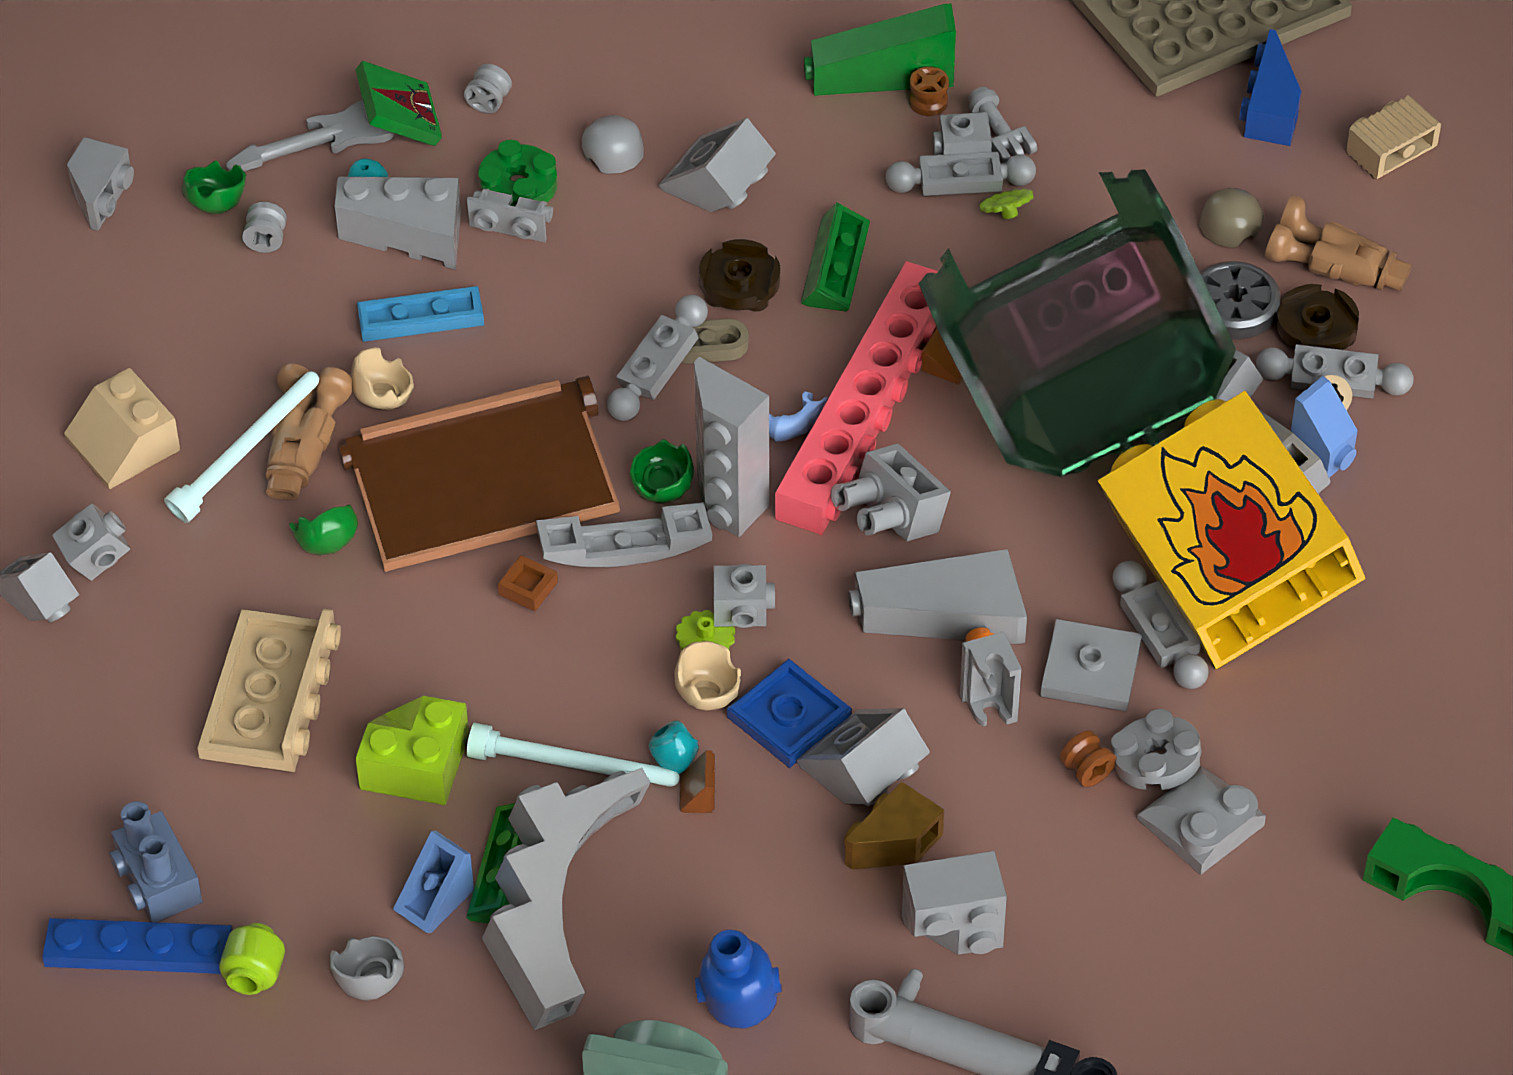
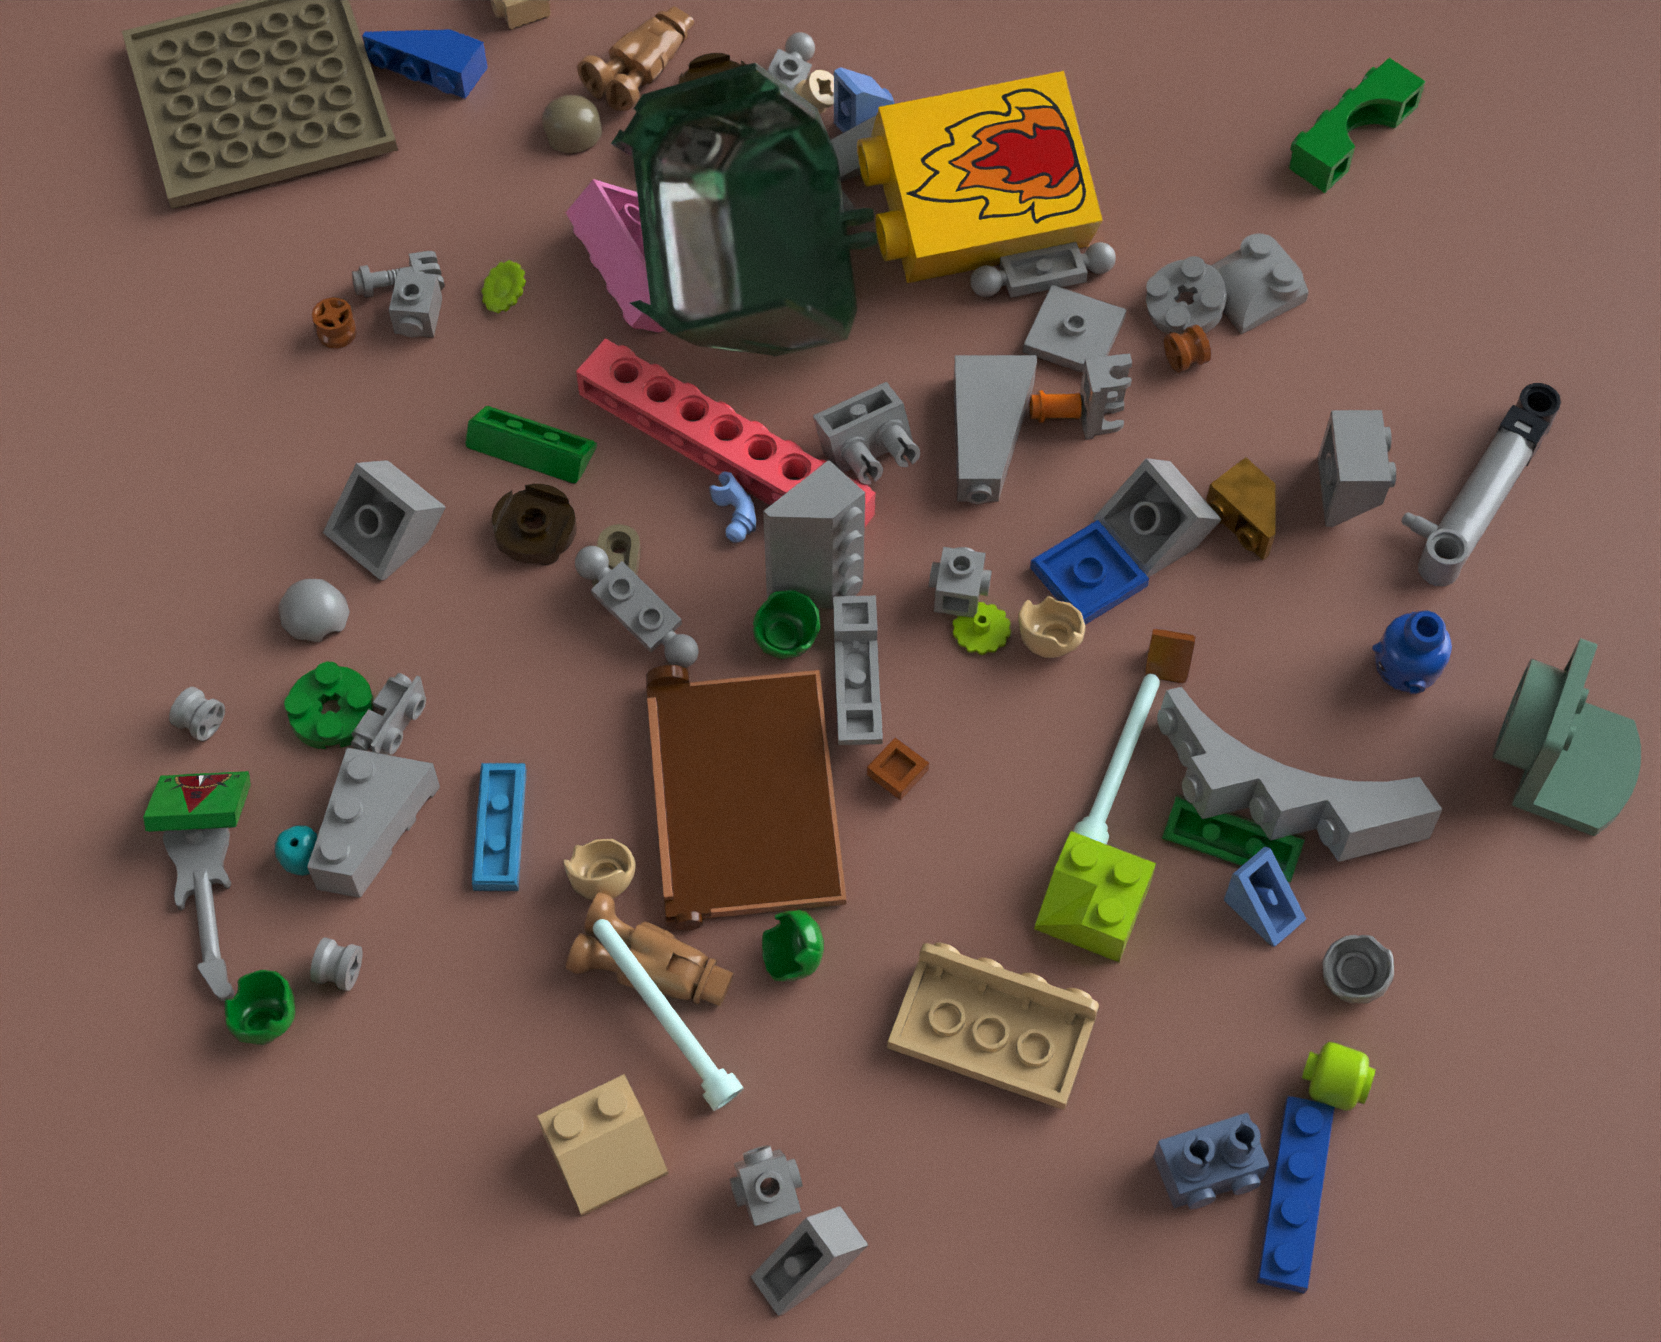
camera: 80 degrees left, 10 degrees up
(98, 178) = (204, 1140): light grey slope -> none
(673, 747) = (1126, 668): teal piece -> none
(883, 53) = (283, 342): green slope -> none
(938, 361) = (687, 368): dark orange slope -> none
(960, 173) = (454, 317): light grey plate -> none

